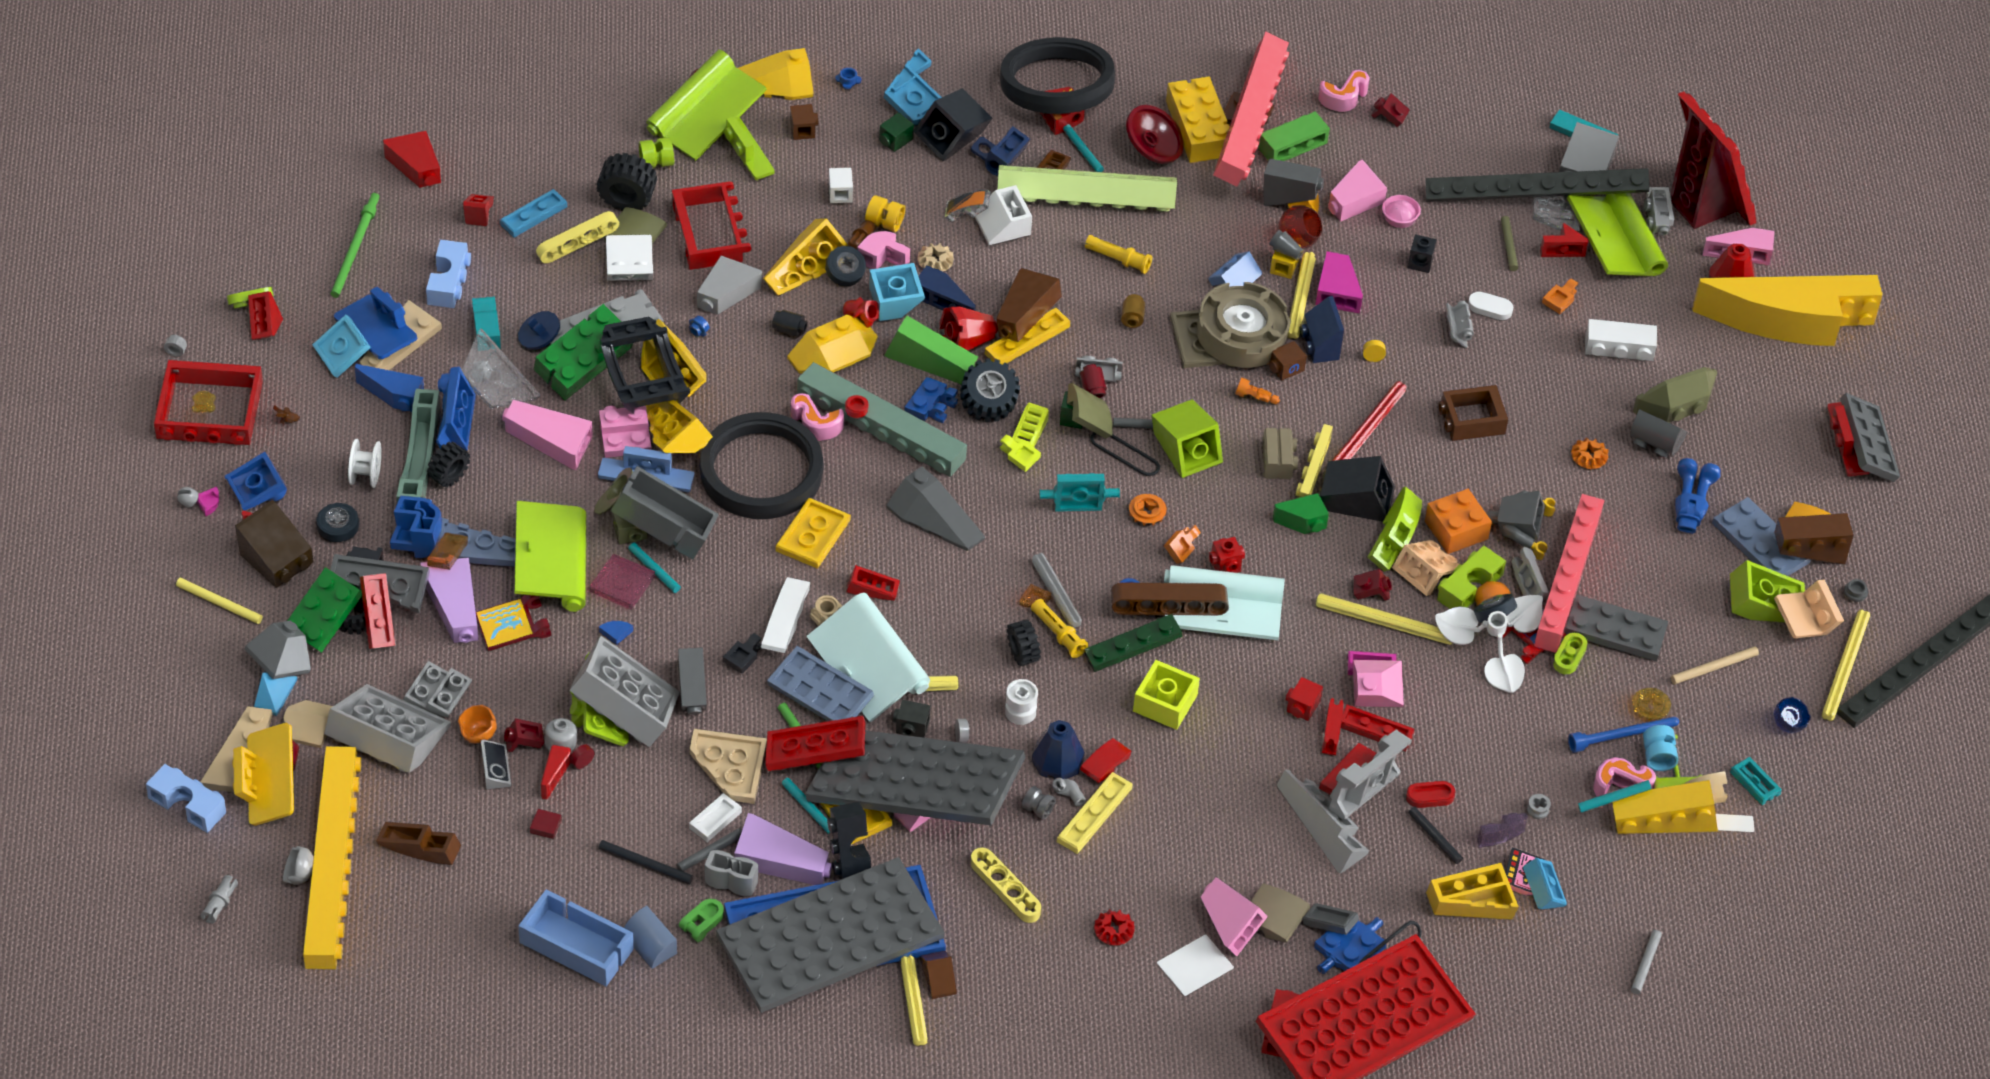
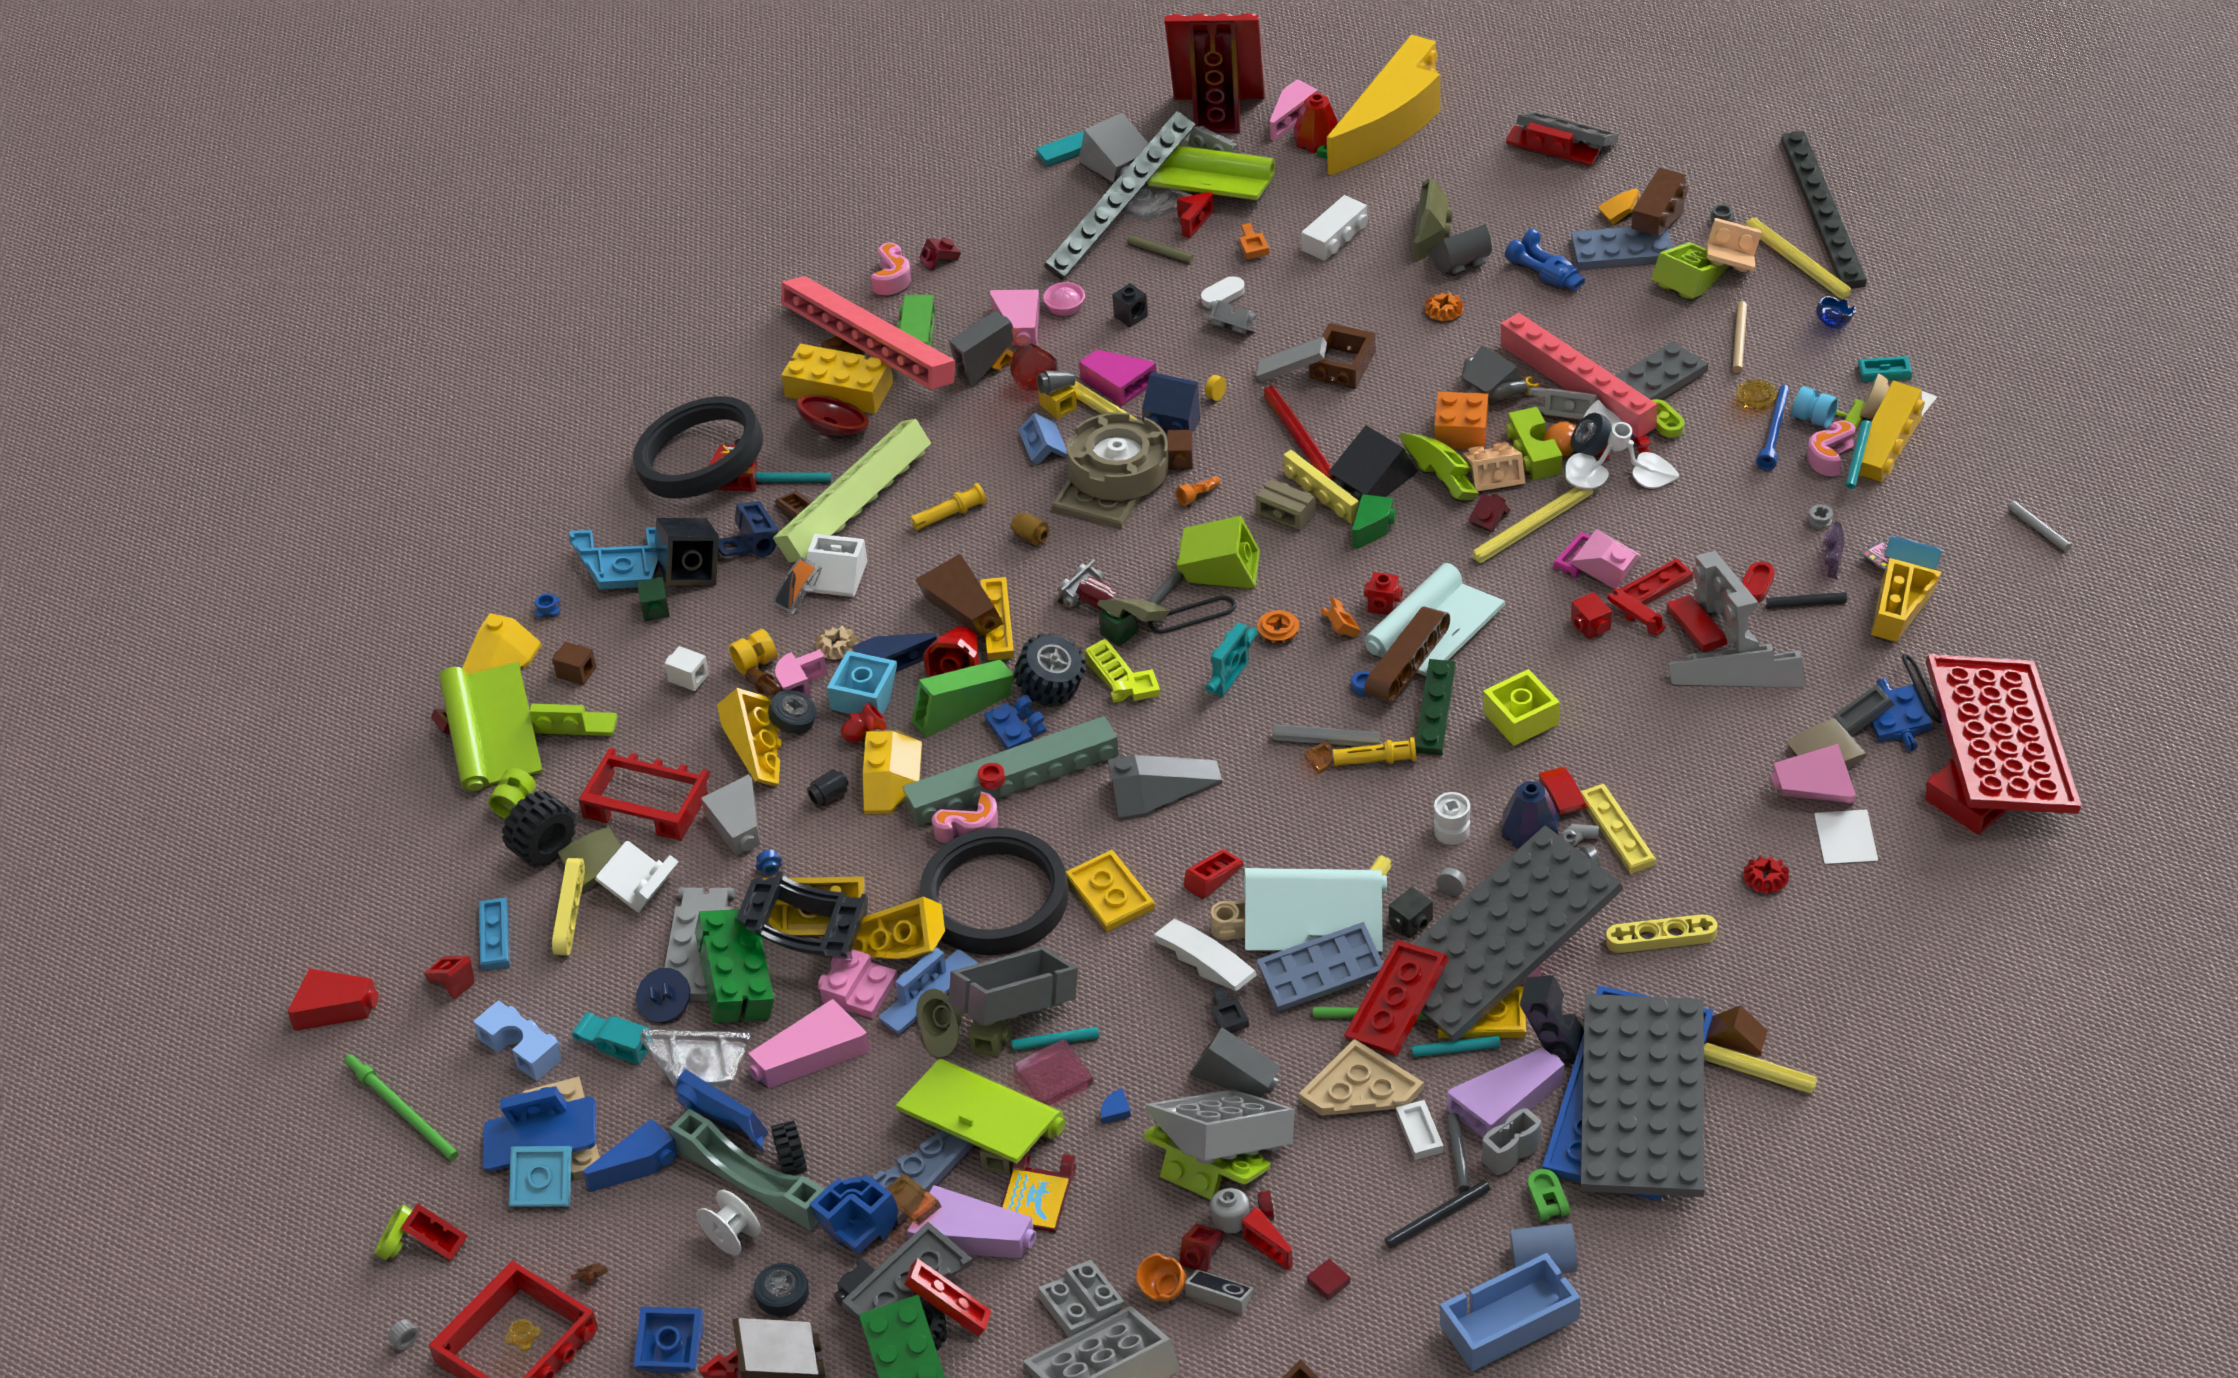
camera: 50 degrees left, 5 degrees down
(1023, 642) = (1386, 772): black tyre -> none
(1436, 381) = (1291, 359): none -> light grey tile

